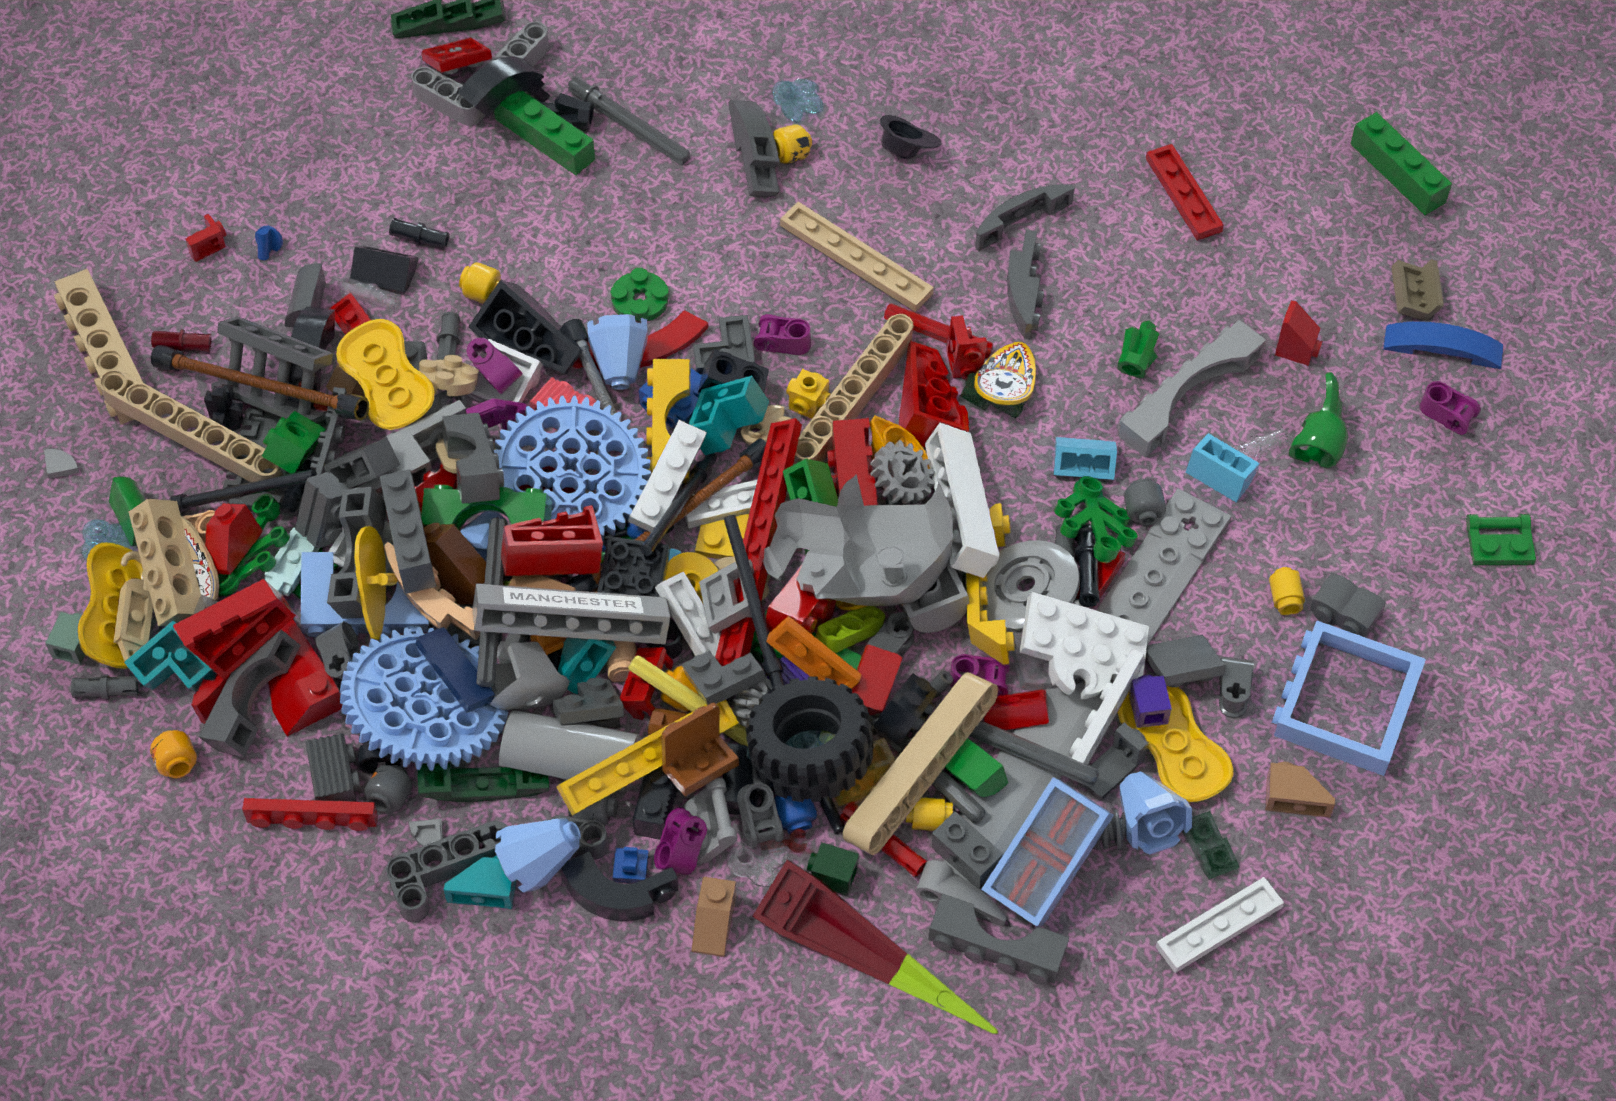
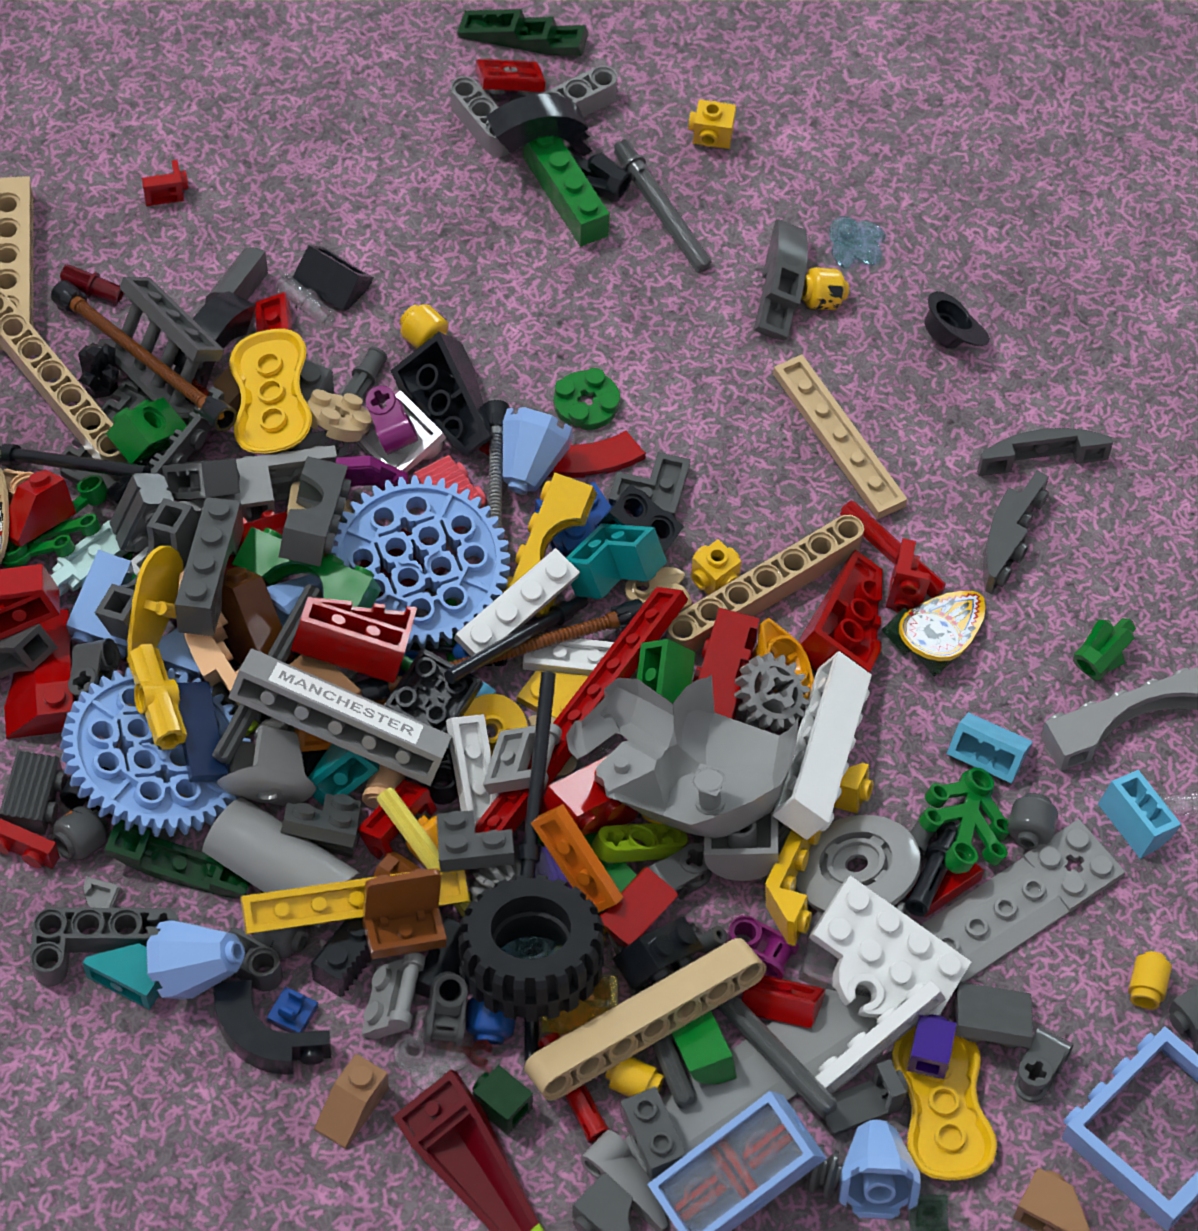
camera: 20 degrees right, 0 degrees up
(267, 239) = (226, 208): blue plate -> none
(409, 652) = (157, 696): none -> yellow piece
(419, 233) = (385, 253): black pin -> none
(641, 41) = (712, 124): none -> yellow brick
(682, 844) = (350, 1008): magenta piece -> none
(784, 335) = (719, 495): magenta piece -> none

